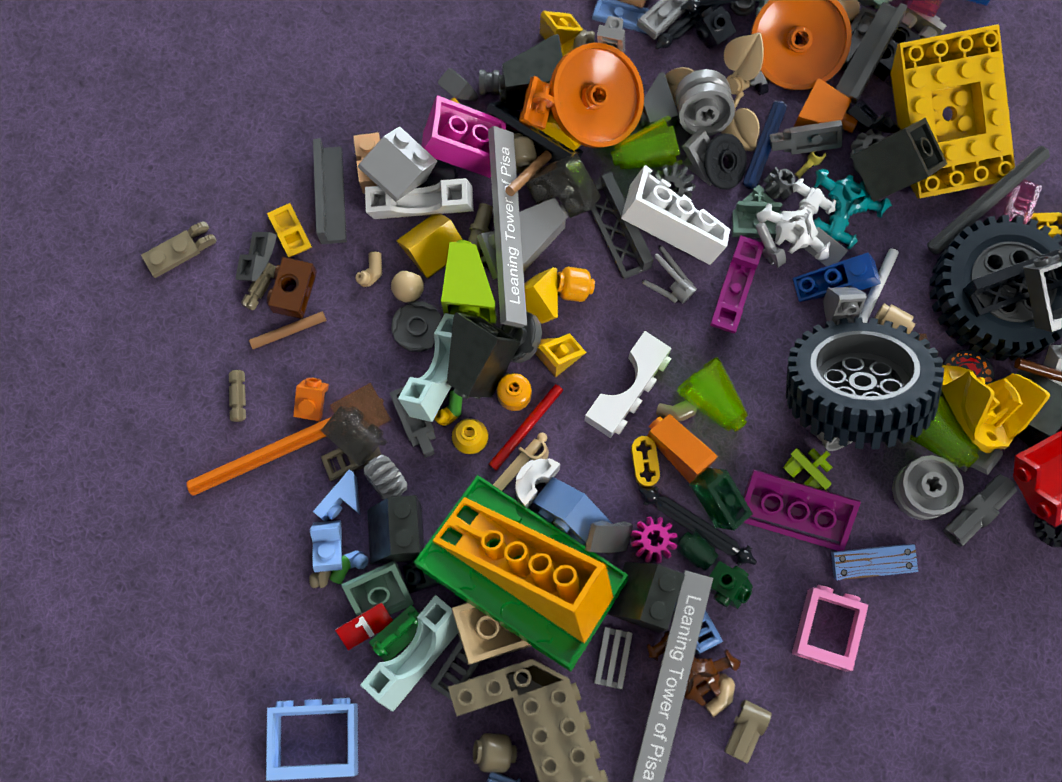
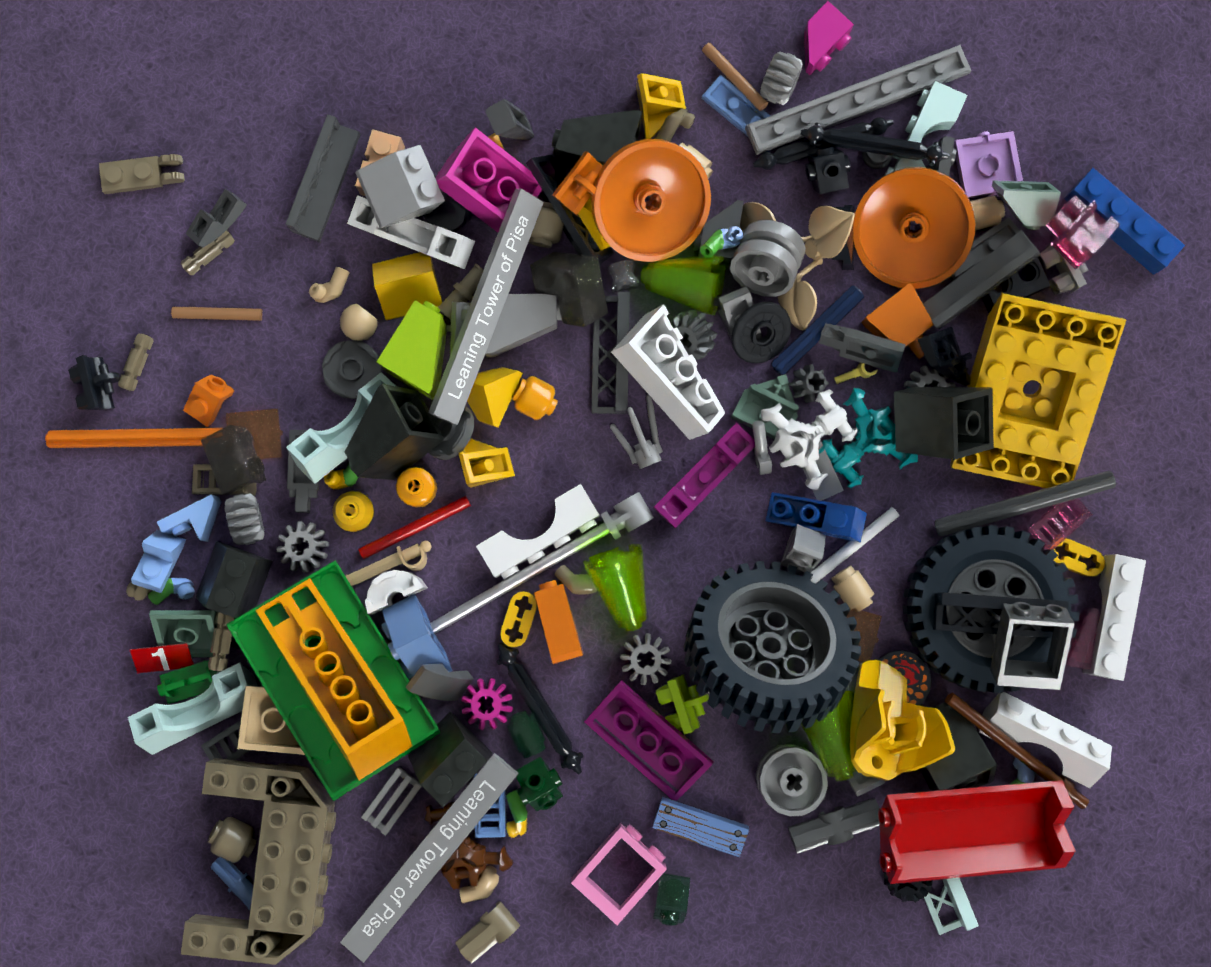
camera: 25 degrees right, 10 degrees up
(214, 425) = (96, 383): none -> black hips
(275, 771) = (19, 763): light blue window -> none
(289, 230) = (265, 203): yellow slope -> none
(294, 302) = (238, 287): reddish brown brick -> none
(411, 584) = (220, 643): none -> dark tan axle
(432, 479) = (295, 538): none -> light grey gear
(488, 82) = (548, 124): dark grey wheel -> none
(528, 173) = (537, 256): medium nougat bar -> none
(598, 165) = (623, 275): none -> clear wheel
(612, 33) = (698, 142): light grey hinge -> none
(664, 103) = (722, 240): none -> arm
(692, 340) = (629, 515): none -> flat silver piece
(721, 498) = (572, 695): clear green brick -> none
(725, 620) = (519, 814): none -> bright green arm
(751, 443) = (646, 669): none -> light grey gear
(883, 632) = (672, 899): none -> clear green bracket

